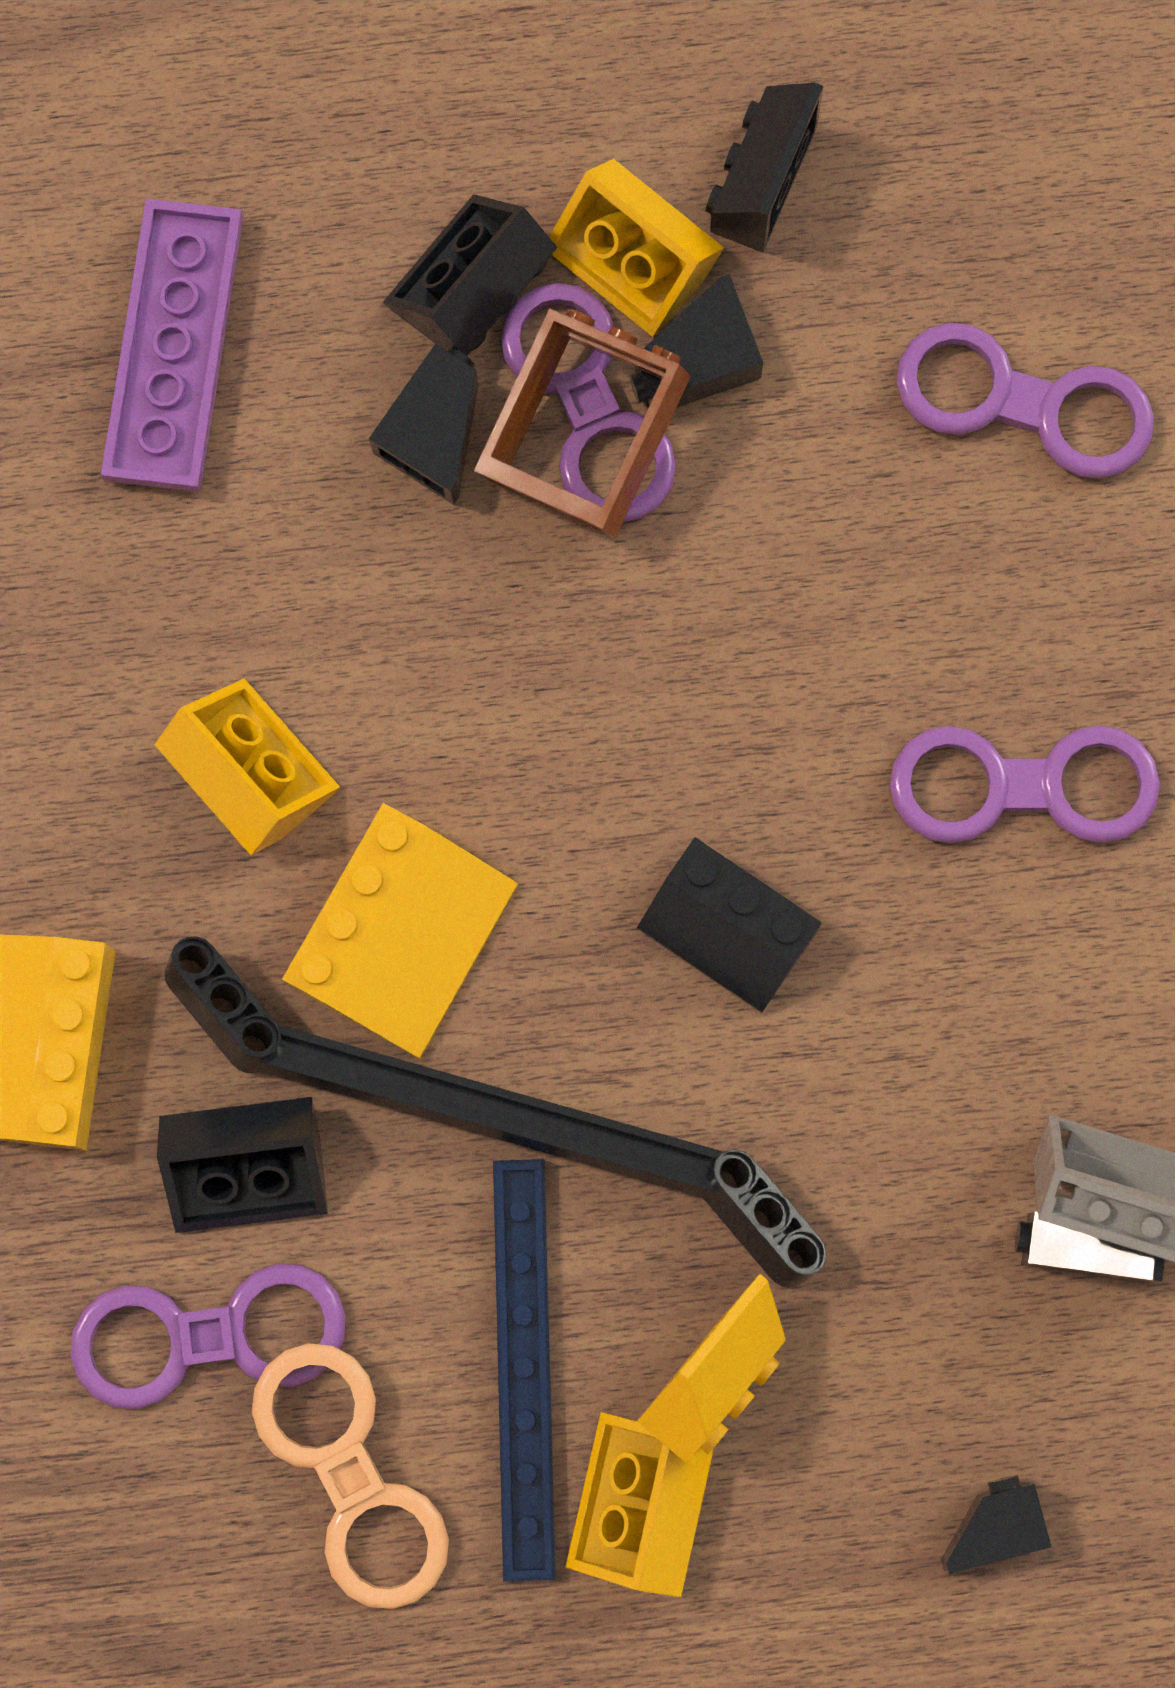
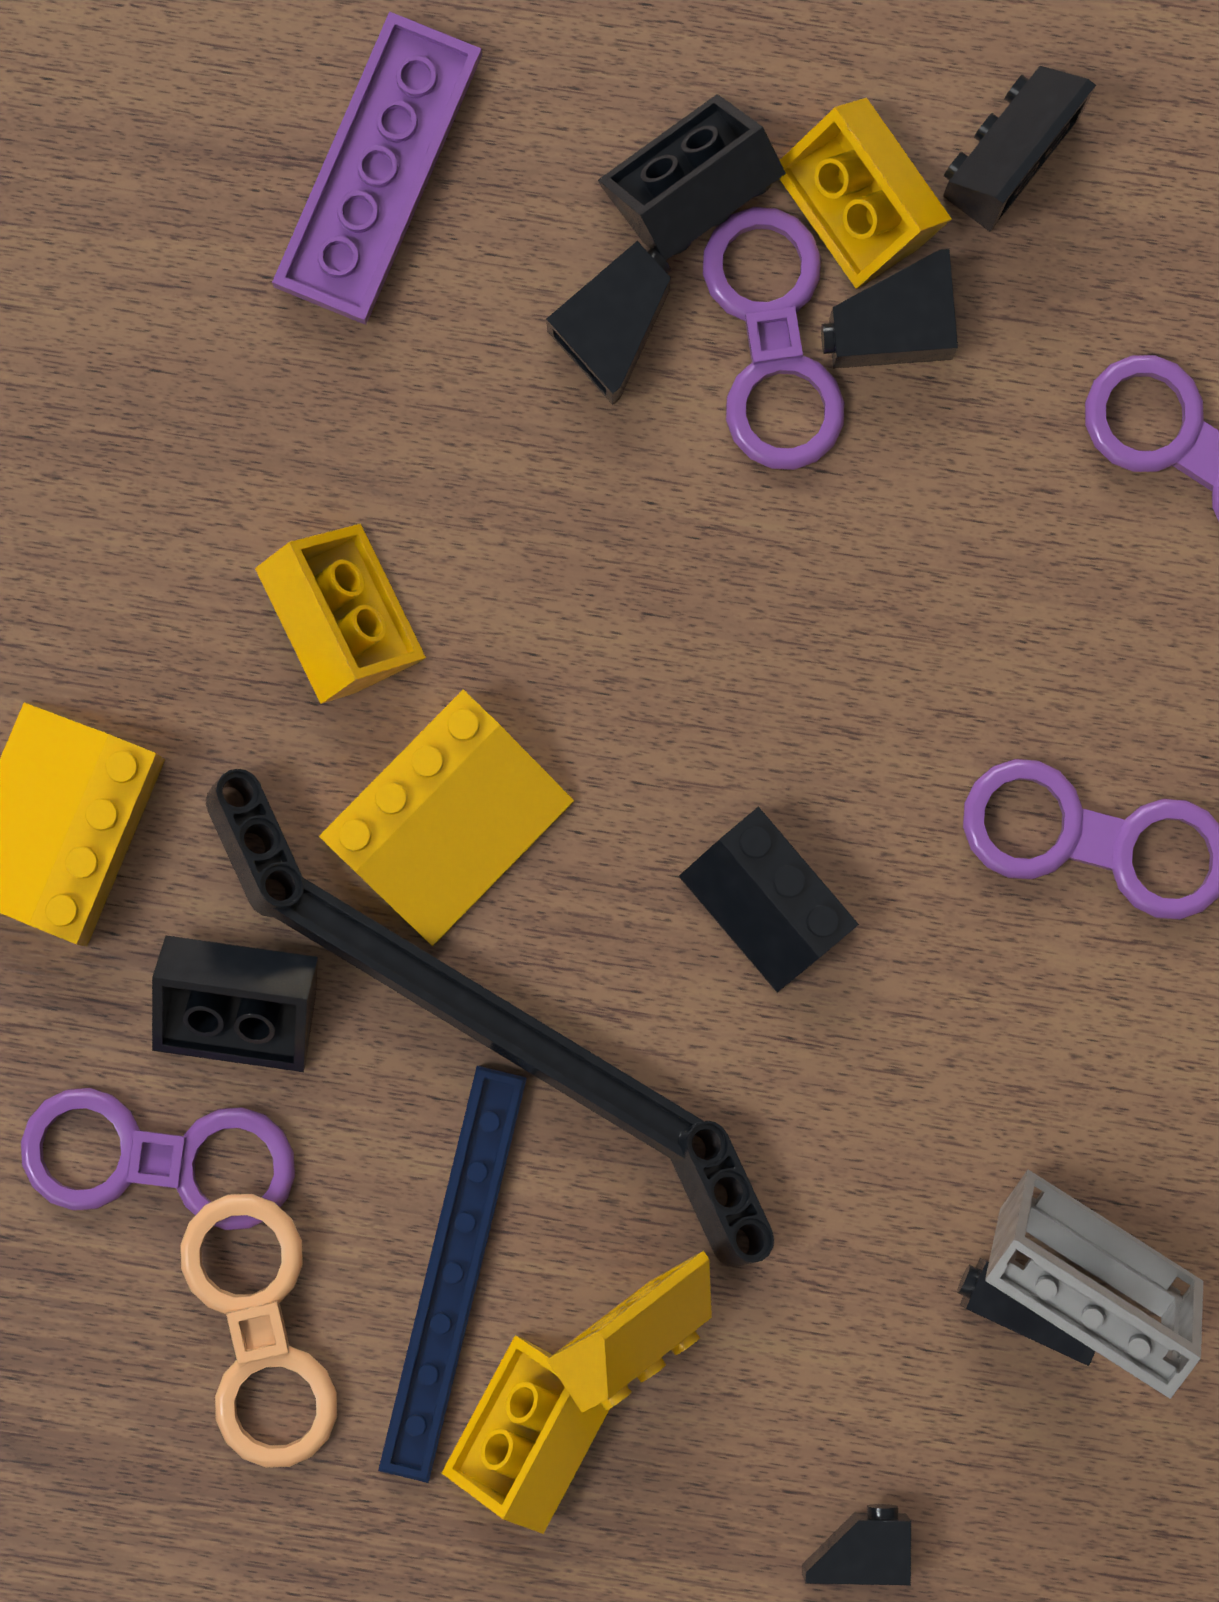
camera: 10 degrees right, 5 degrees up
(528, 392) = (716, 315): dark orange window -> none

